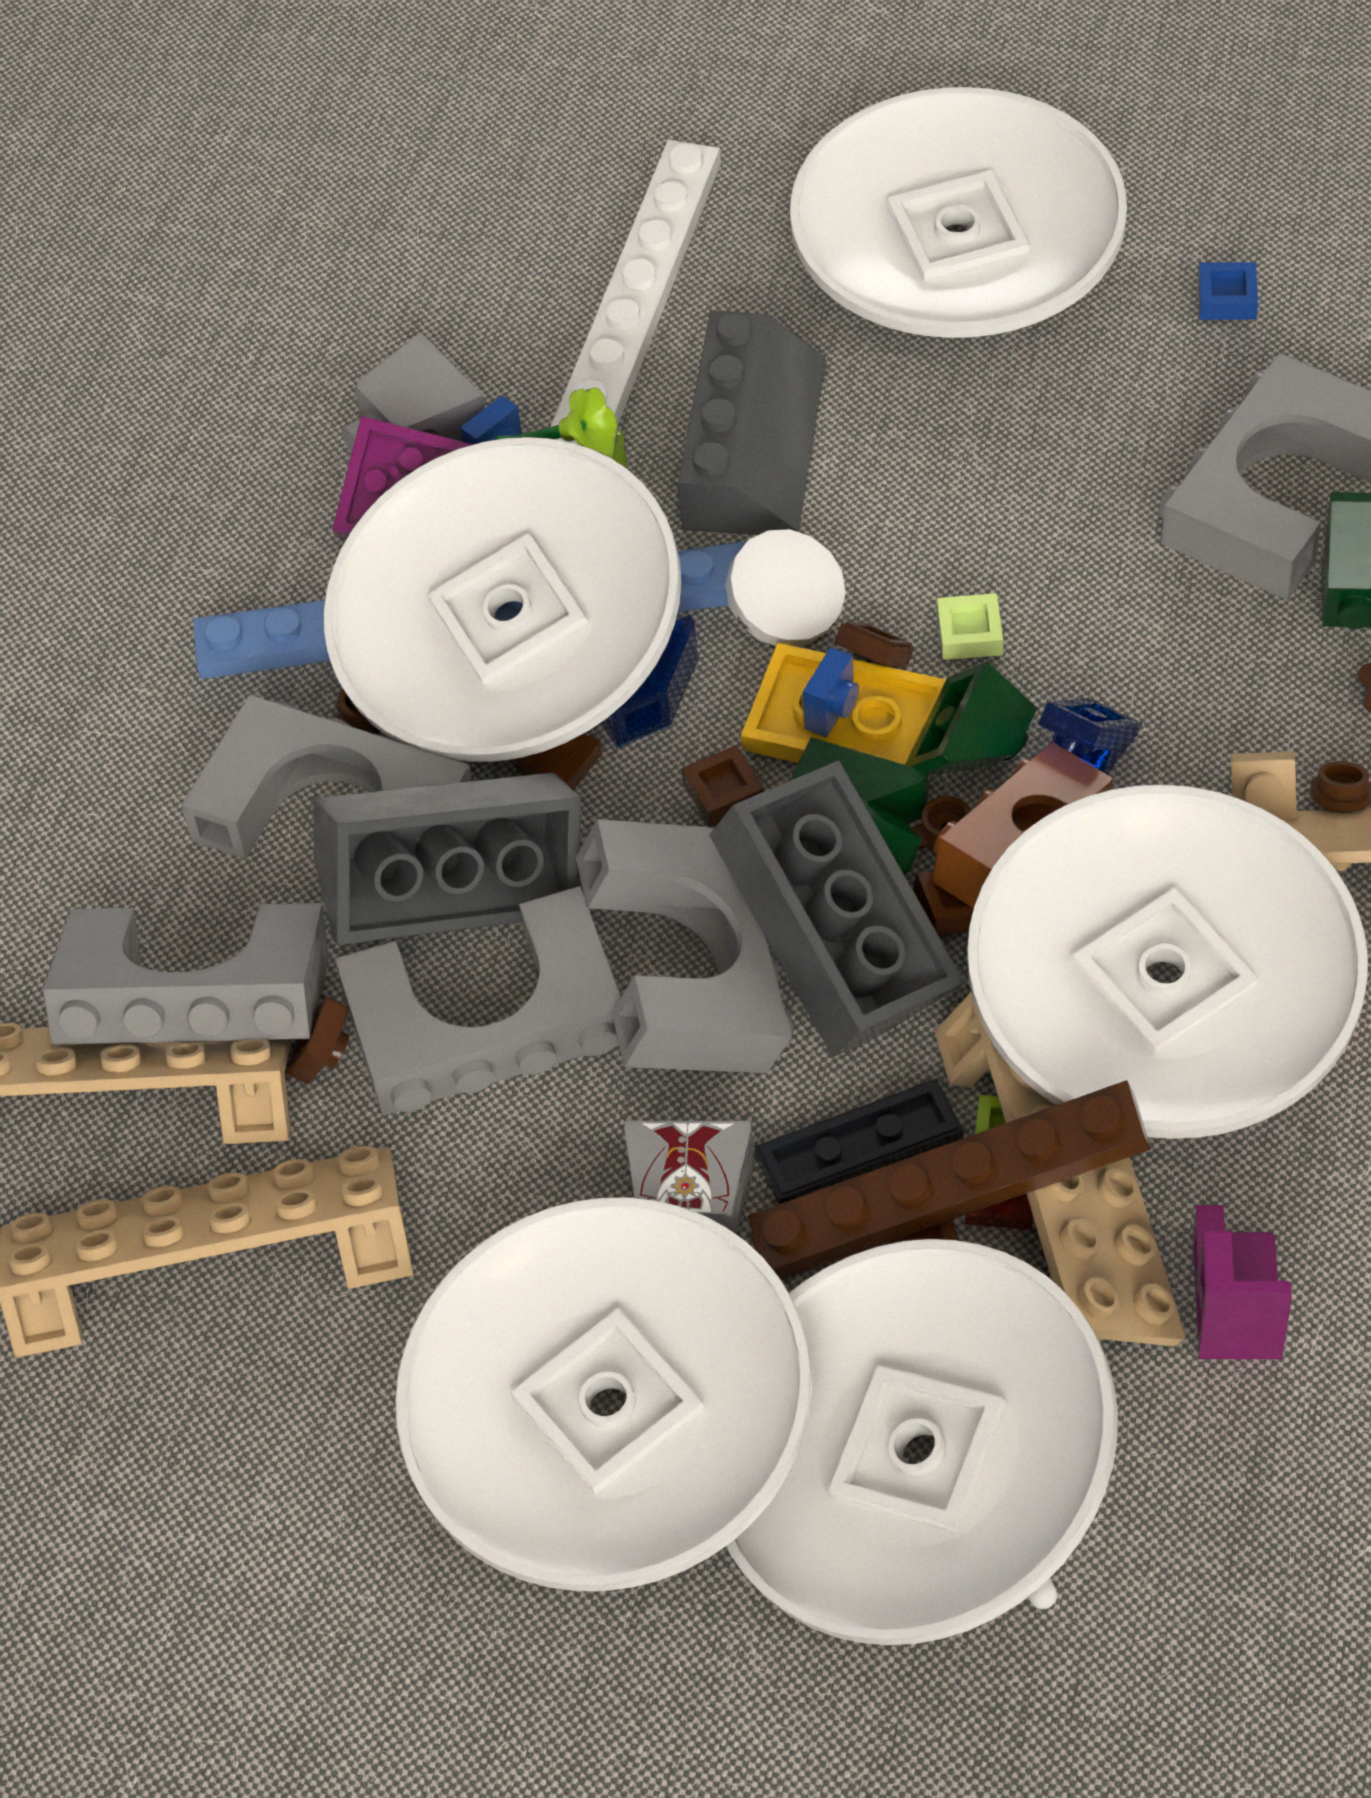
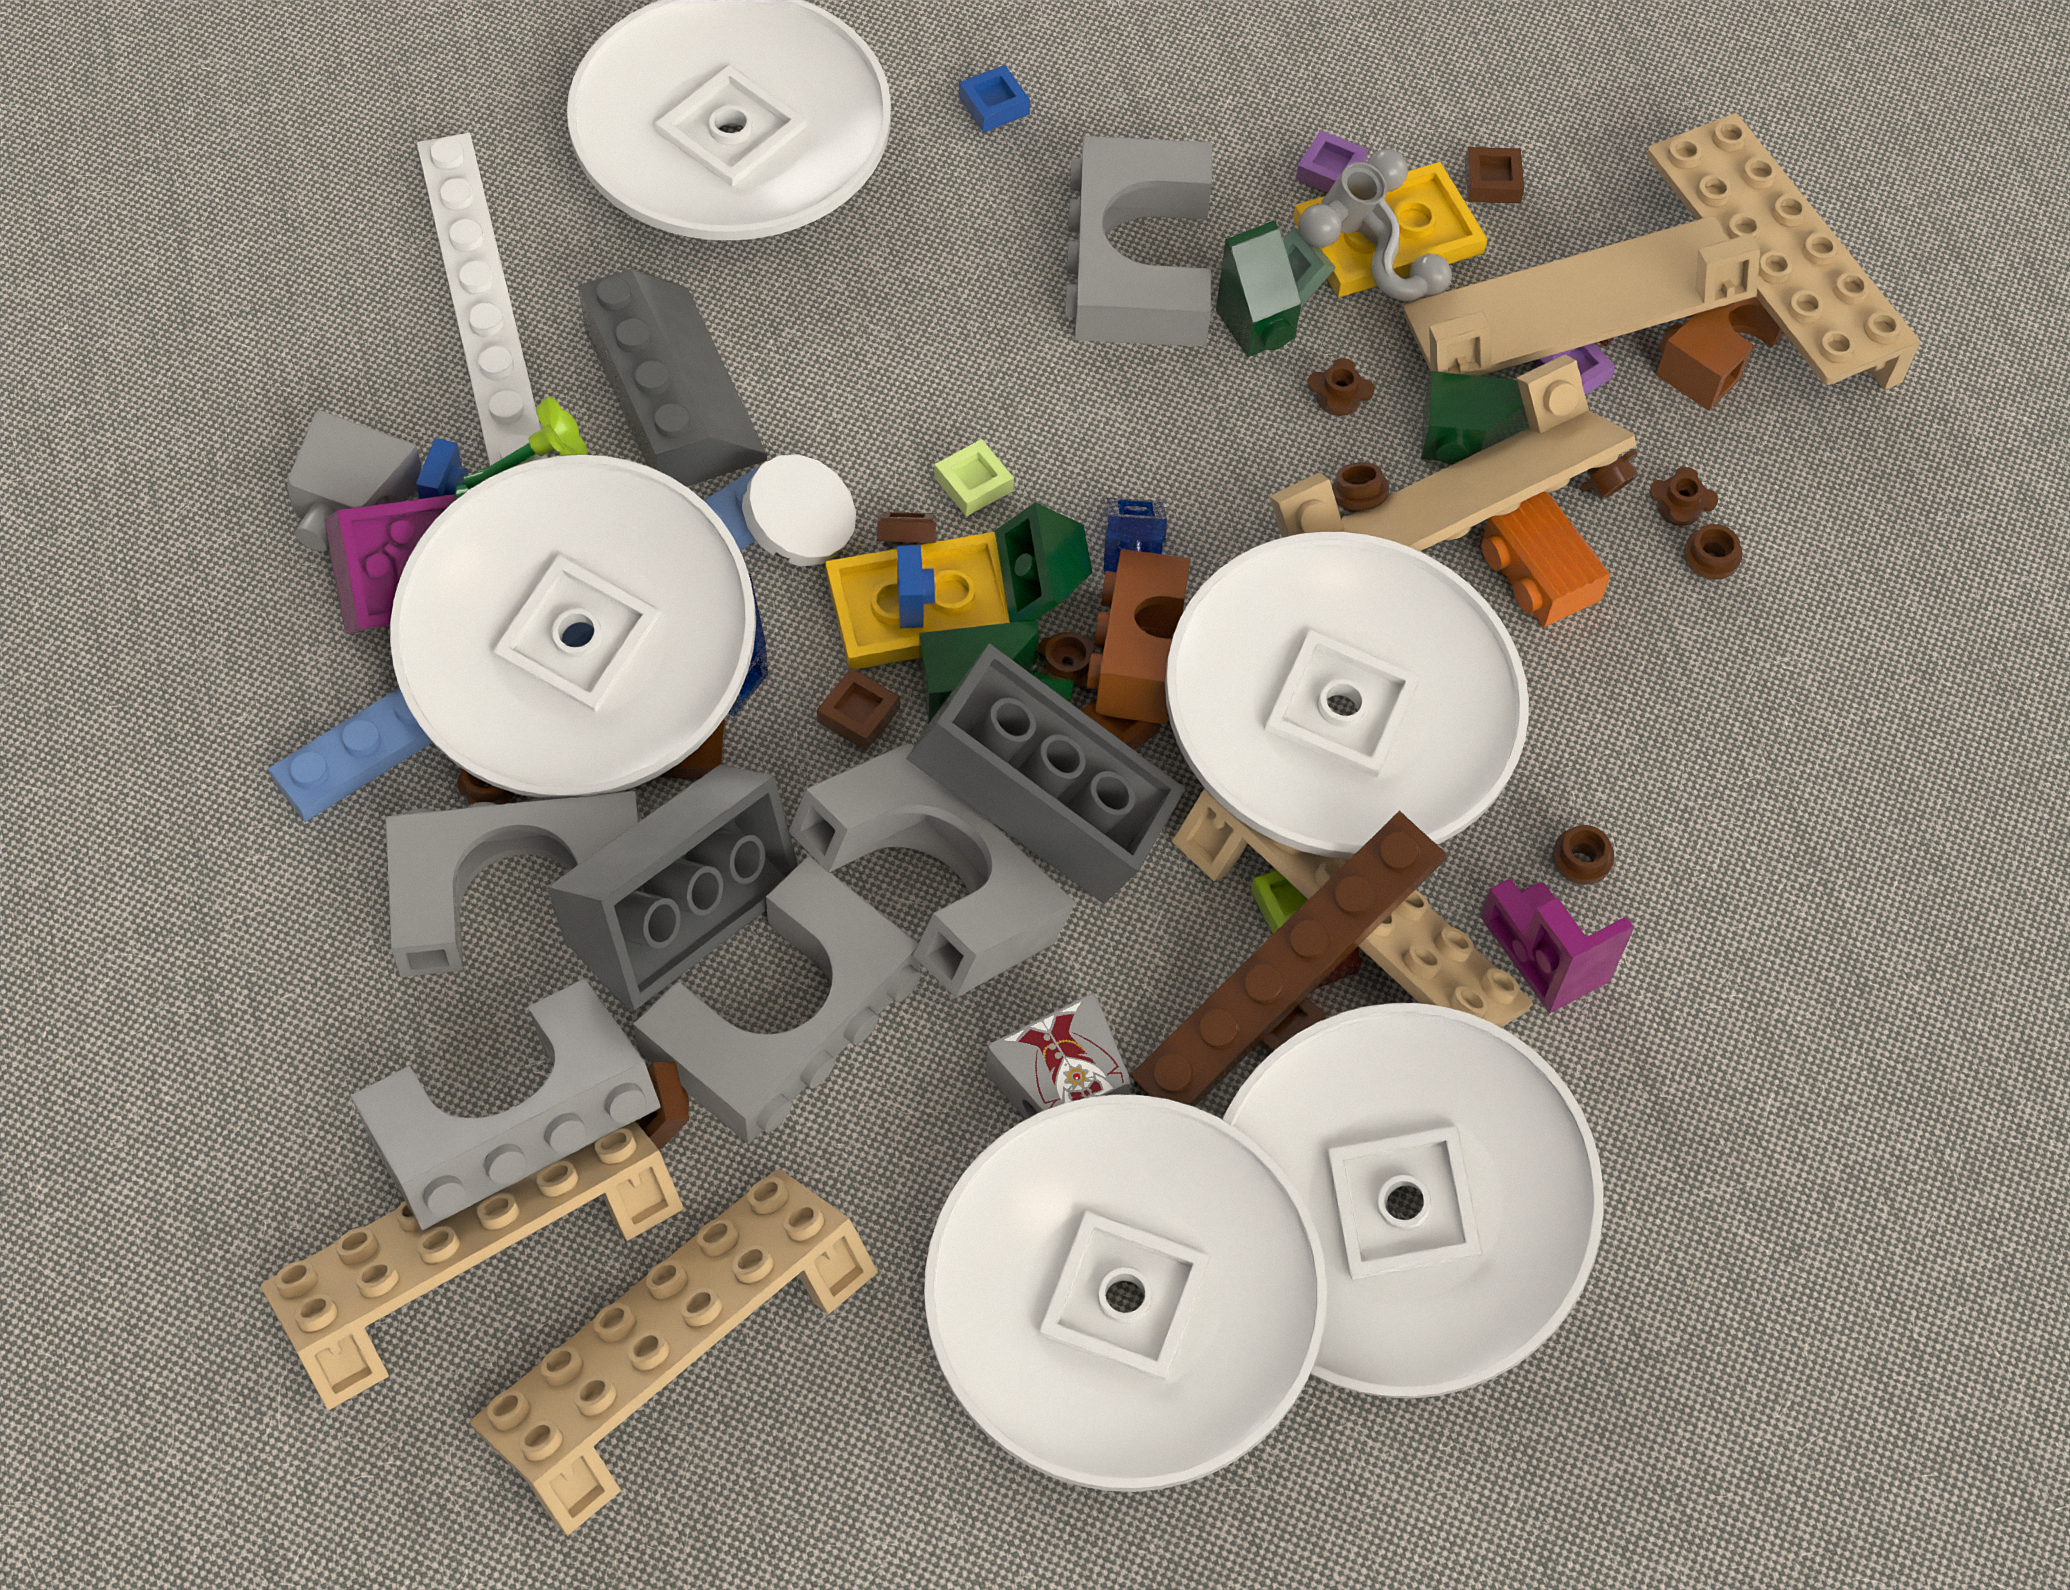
camera: 40 degrees left, 5 degrees up
(858, 1141) = (1174, 967): black tile -> none
(1335, 1211) = (1588, 841): none -> reddish brown plate

